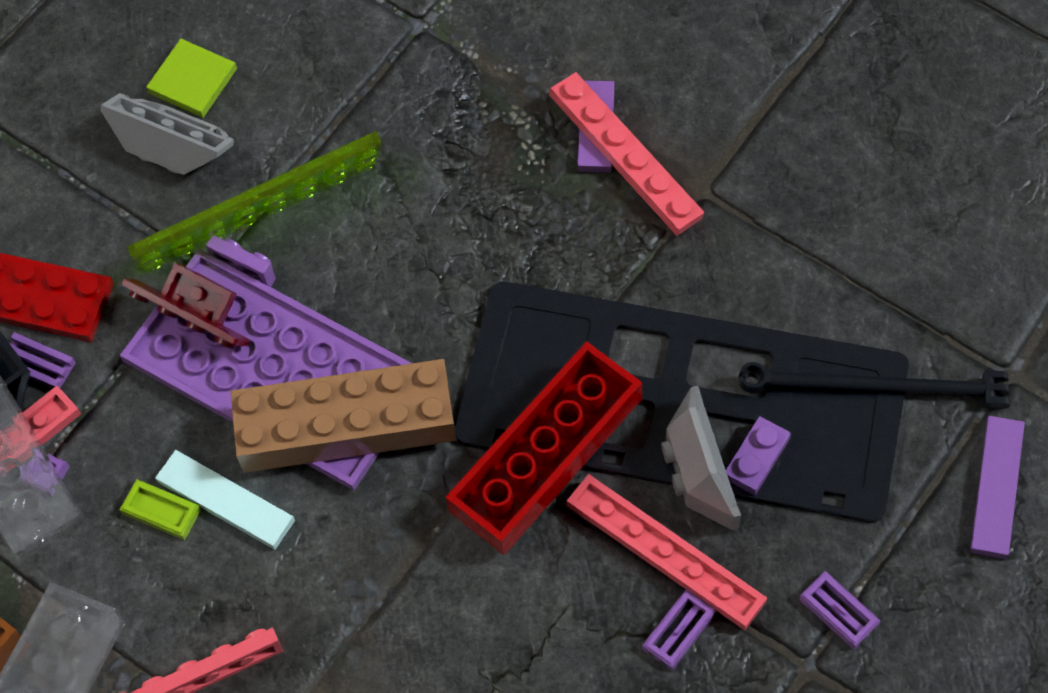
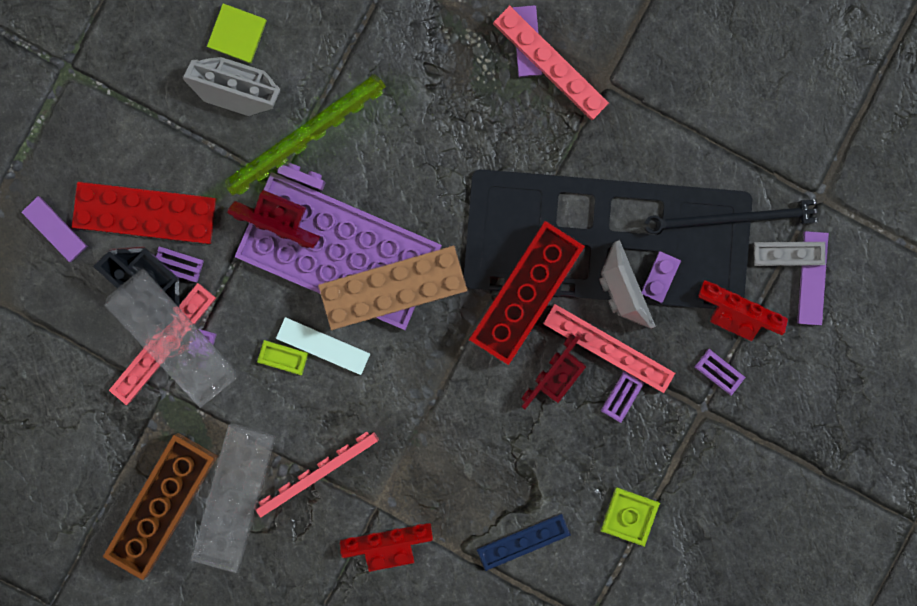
camera: 10 degrees left, 25 degrees up
(580, 578) = (560, 376): none -> dark red bracket
(877, 524) = (740, 314): none -> red bracket
(962, 444) = (789, 253): none -> light grey tile

